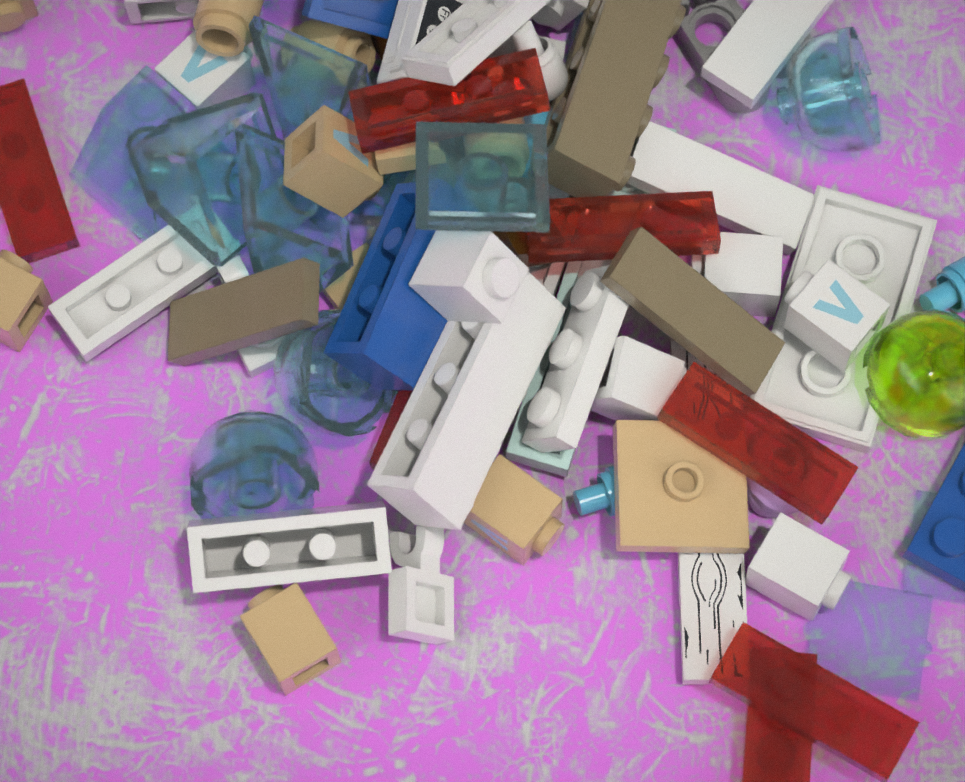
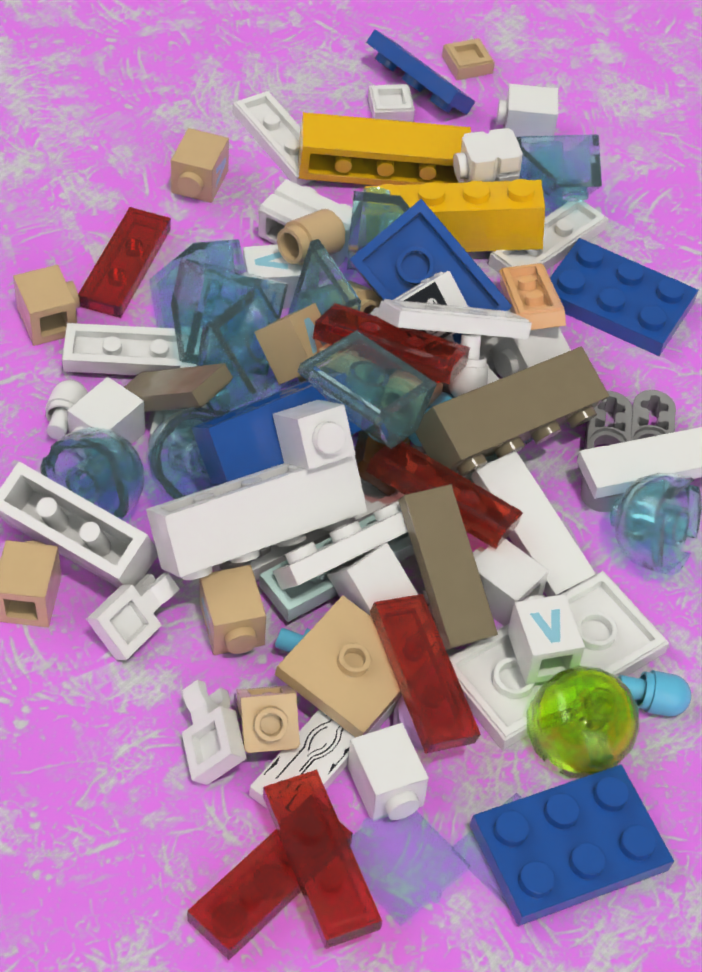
camera: 30 degrees right, 20 degrees down
(135, 406) = (61, 399): none -> white cylinder
(194, 390) = (109, 408): none -> white brick
(611, 658) = (214, 739): none -> white plate
(644, 595) = (269, 718): none -> tan bracket

